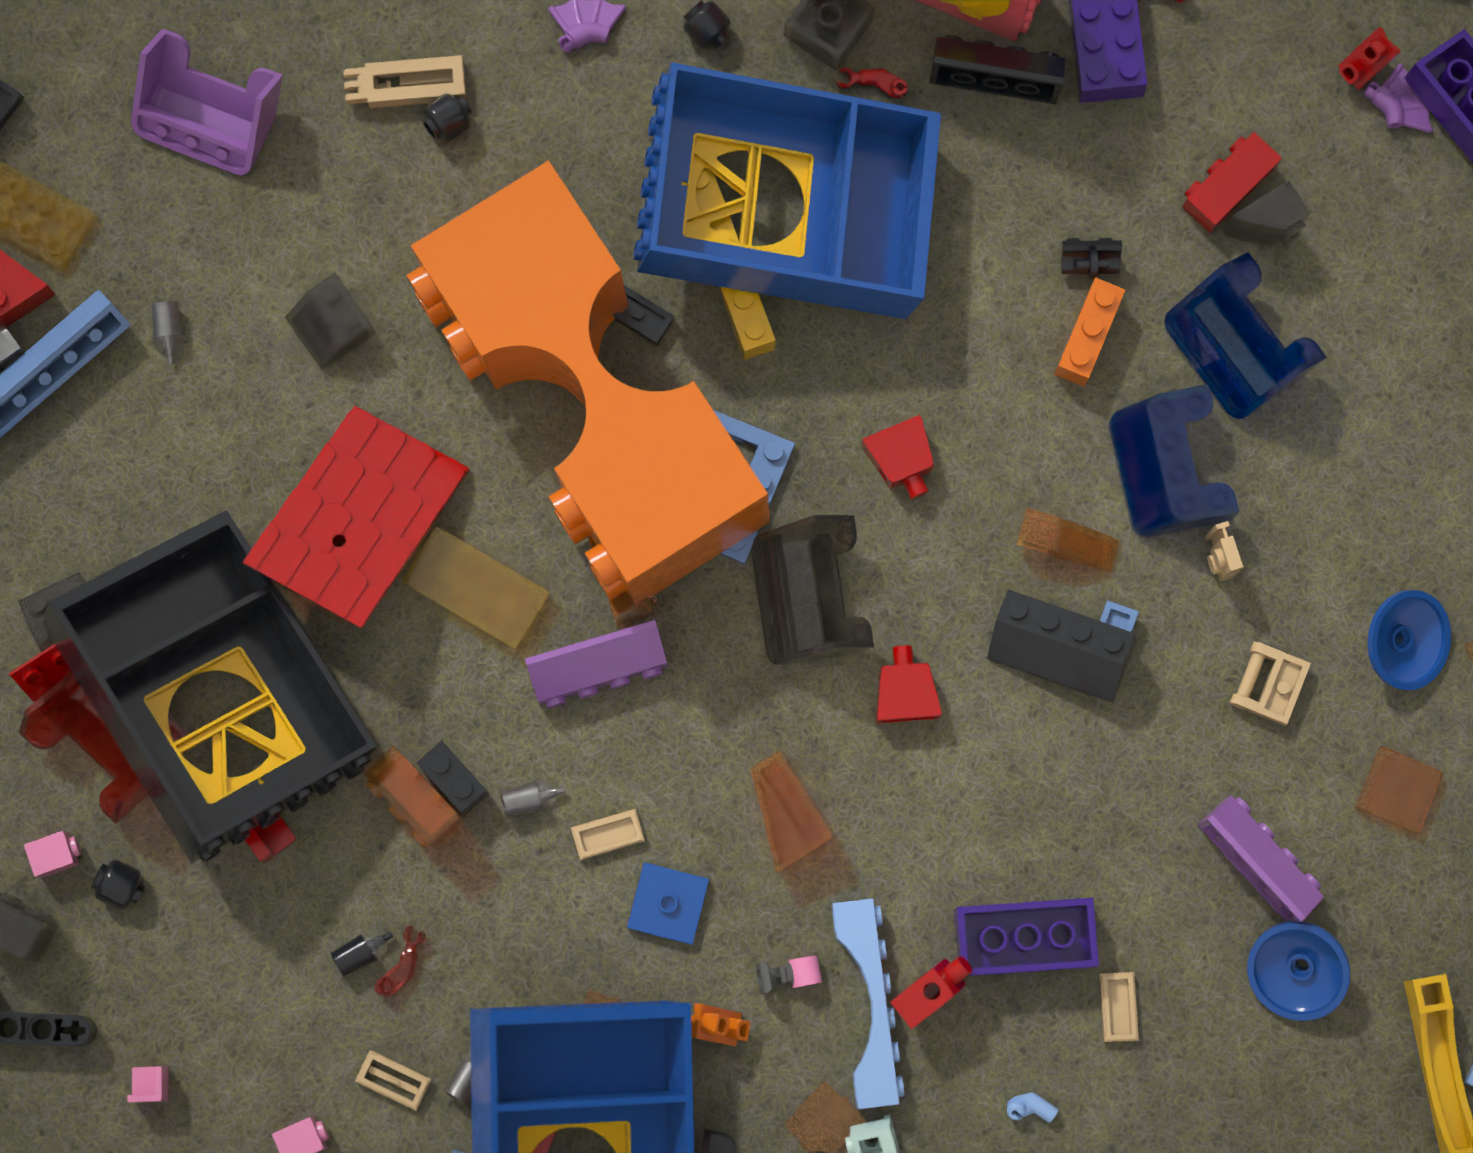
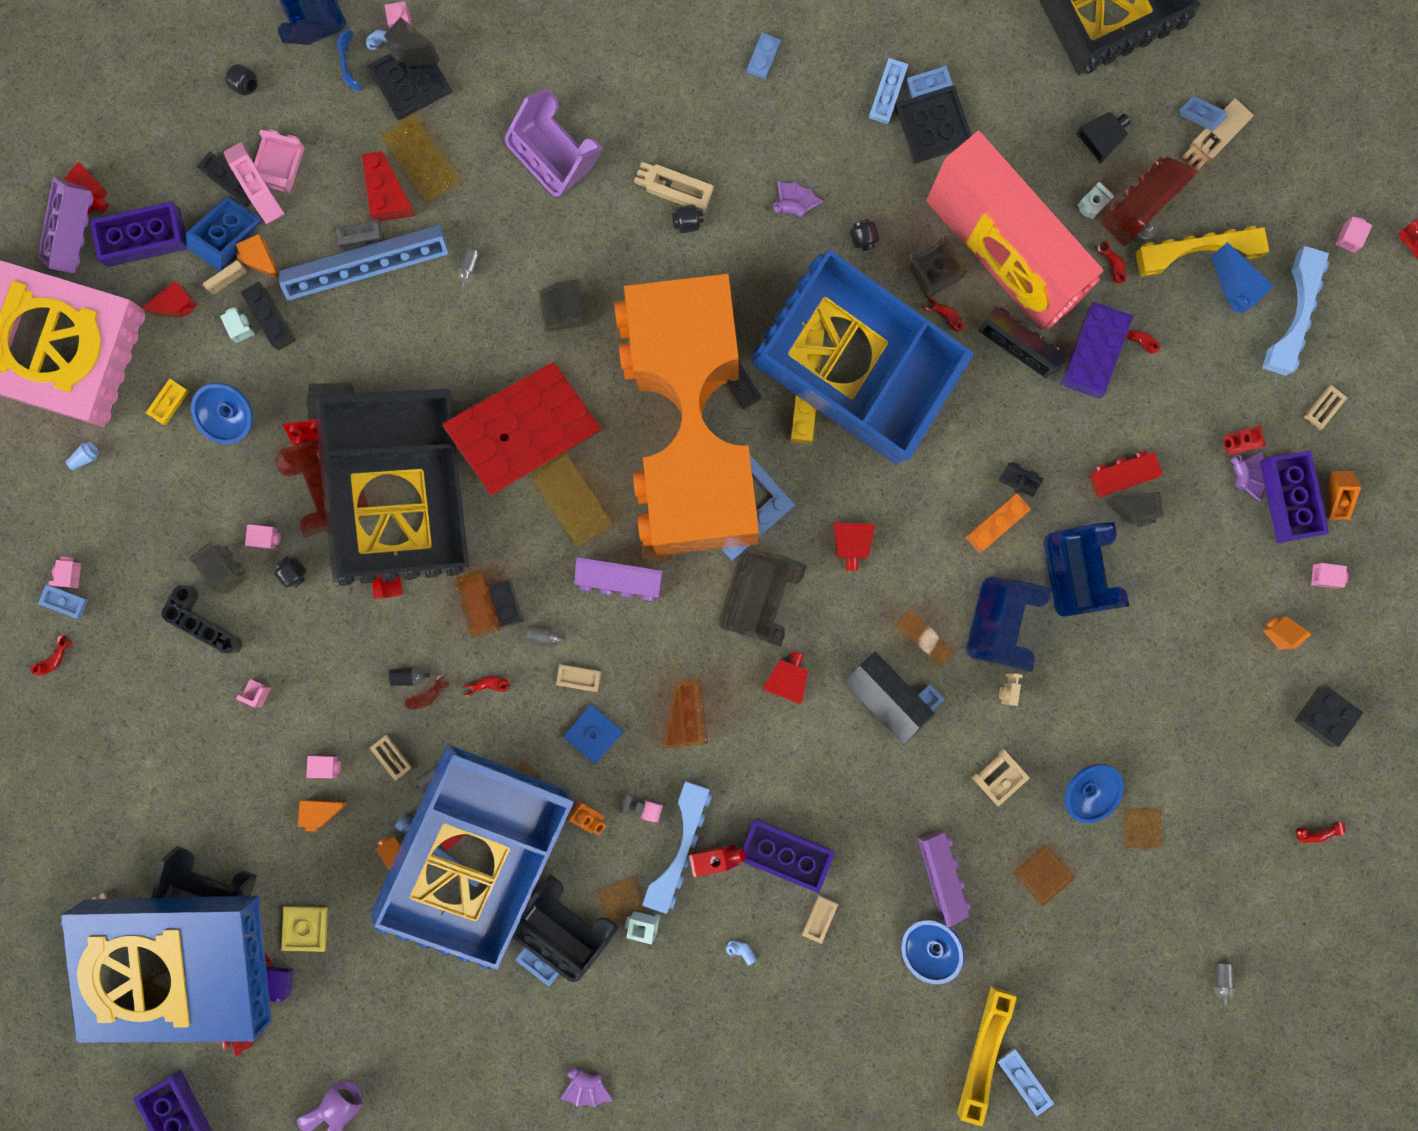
camera: 30 degrees right, 5 degrees up
(483, 902) = (490, 682): none -> red arm

